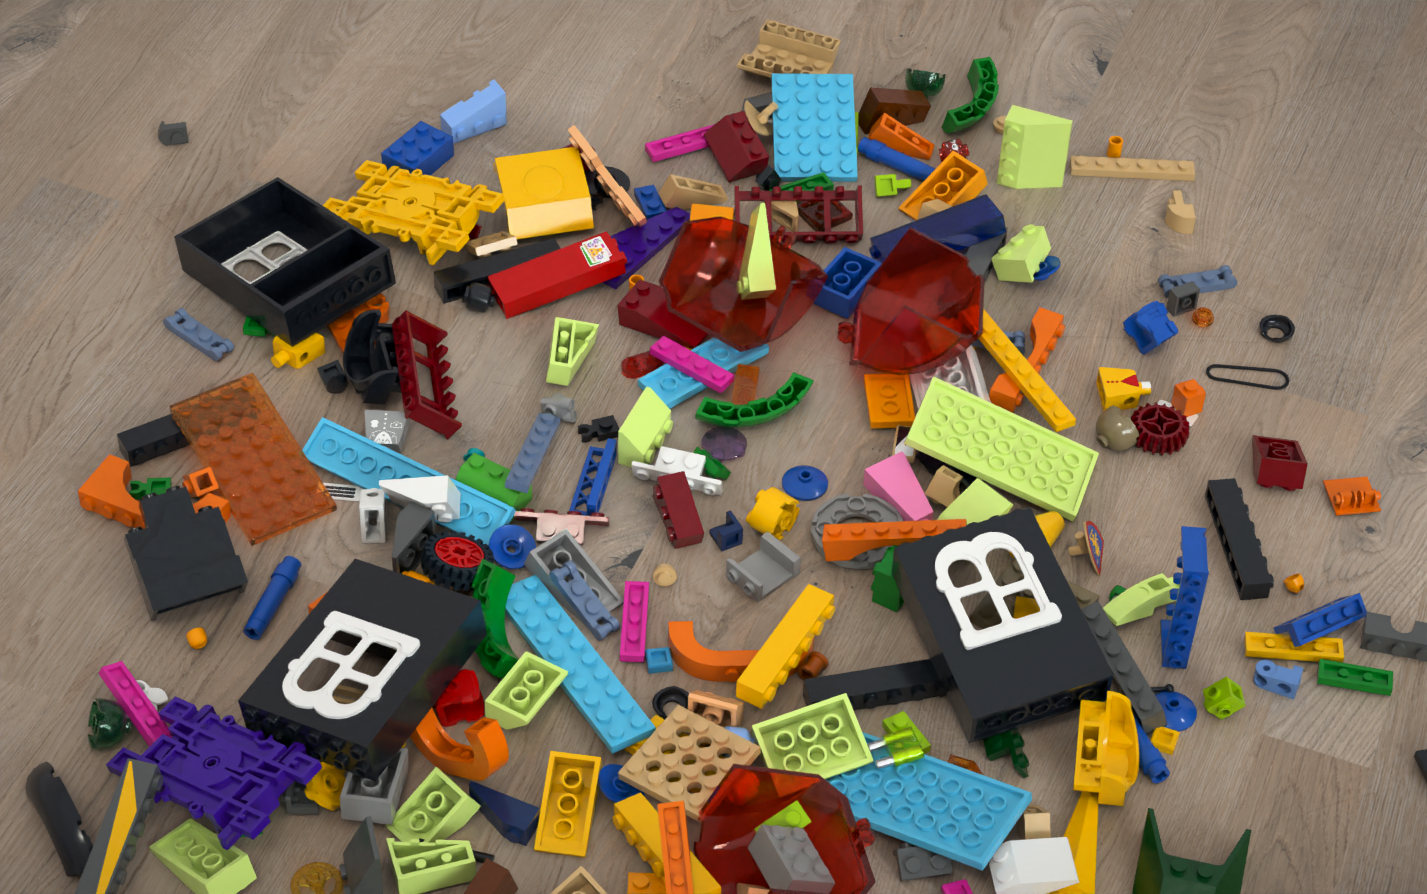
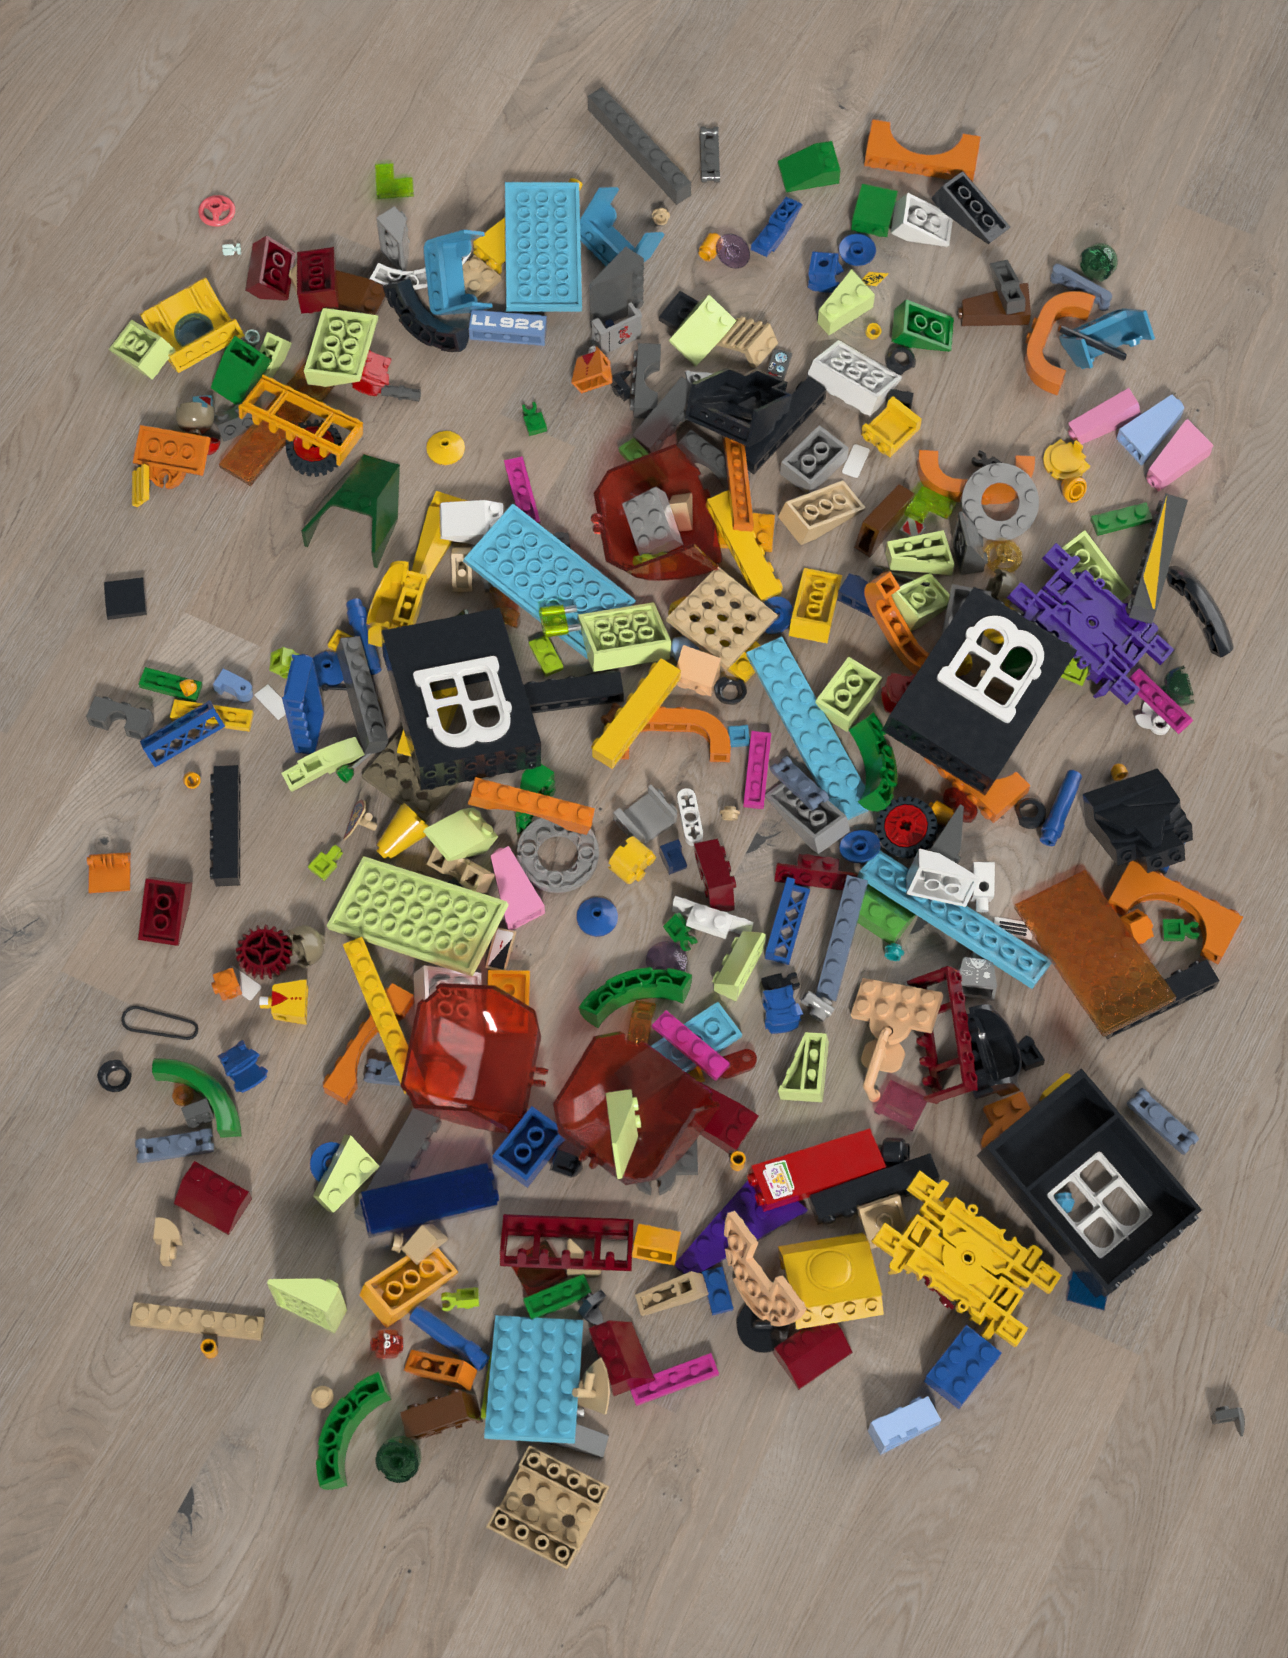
camera: 175 degrees left, 20 degrees up
(298, 602) = (1031, 823): none -> black piece
(322, 826) = (1002, 585): none -> dark tan cylinder
(468, 343) = (903, 1099): none -> clear pink plate
(477, 393) = (892, 1015): none -> light nougat plate
(599, 394) = (781, 1010): none -> blue piece
(712, 566) = (683, 810): none -> white beam
(1116, 508) = (324, 864): none -> lime plate
(1145, 247) = (212, 1198): none -> dark red slope
(1192, 324) = (205, 1085): none -> green brick
(1221, 669) = (271, 701): none -> white sticker
(1332, 661) = (188, 687): none -> light orange hinge

